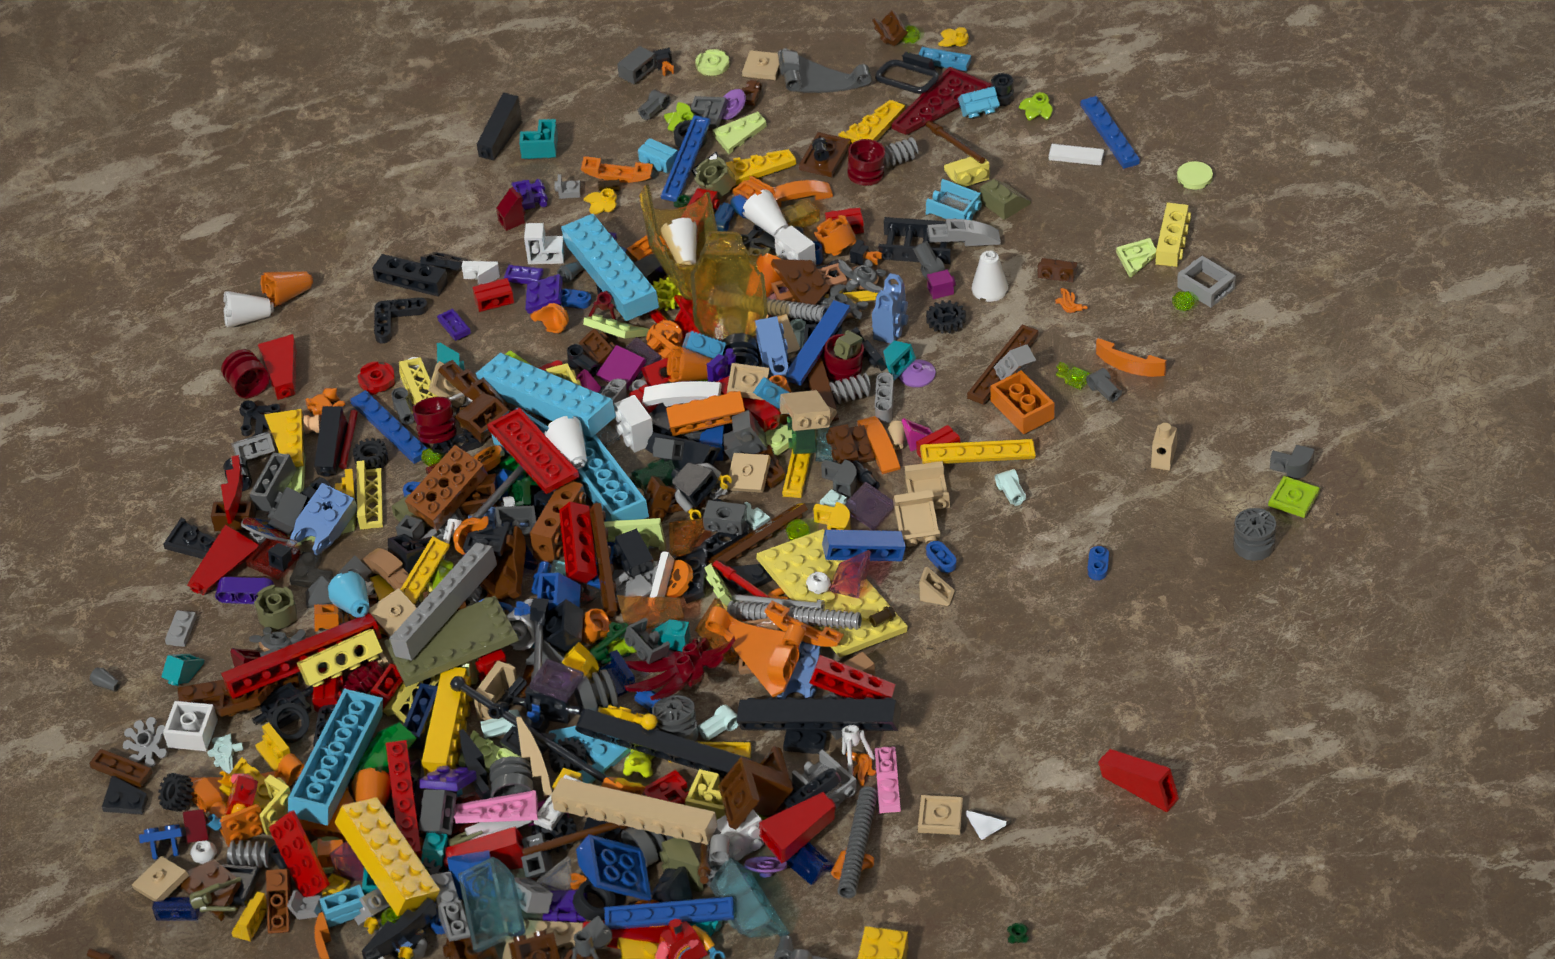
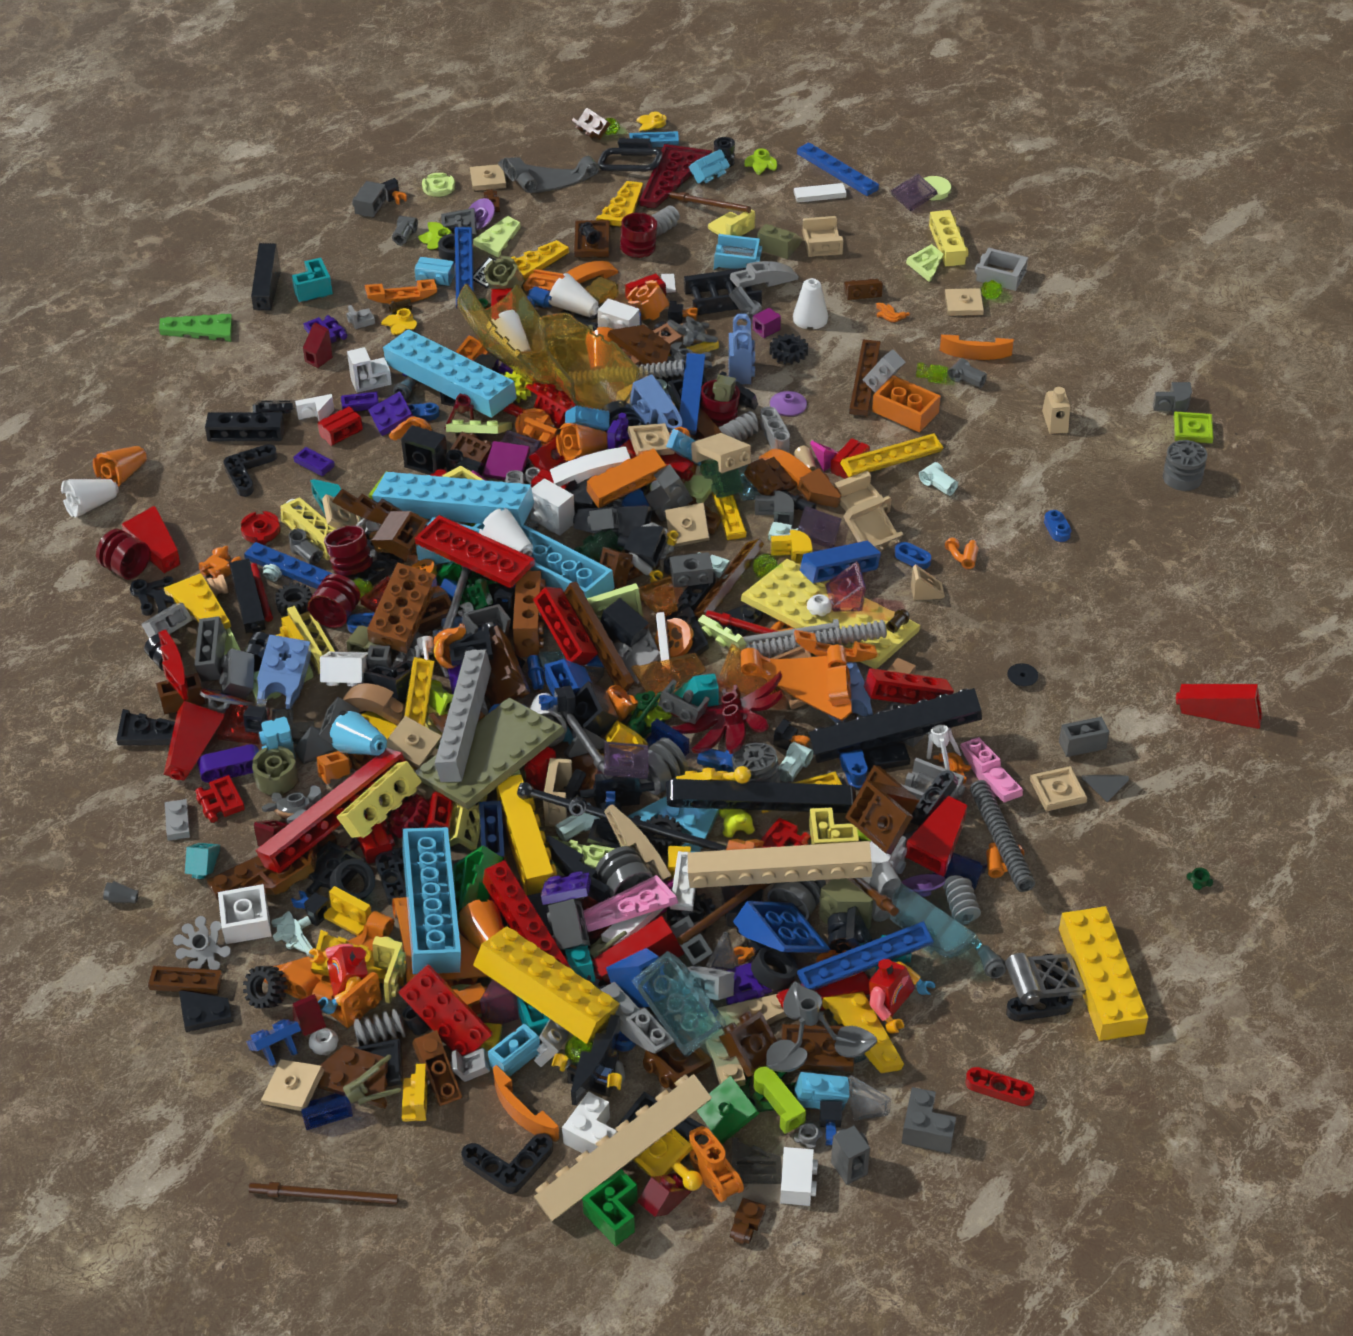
camera: 25 degrees left, 0 degrees up
(227, 620) = (226, 795): none -> red plate
(251, 735) = (314, 905): none -> black piece
(290, 576) = (276, 734): none -> medium azure brick
(364, 423) = (272, 572): none -> light aqua plate
(373, 529) = (343, 668): none -> white brick
(399, 464) = (334, 601): none -> dark red wheel
(428, 164) = (197, 326): none -> bright green wing
(550, 338) = (424, 450): none -> black brick
(725, 696) = (786, 734): none -> black piece
(767, 740) = (854, 767): none -> blue piece
(790, 889) = (961, 899): none -> light grey piece
(874, 218) = (670, 282): none -> white sticker
(887, 467) = (818, 489): none -> dark orange slope
(898, 357) = (767, 391): teal slope -> none
(974, 699) = (1022, 674): none -> black piece
(989, 773) = (1084, 736): none -> dark grey brick
(992, 573) = (970, 553): none -> orange plant
(1049, 204) = (822, 236): none -> tan panel
(1149, 307) = (964, 302): none -> tan plate
(1168, 176) = (914, 192): none -> clear purple plate

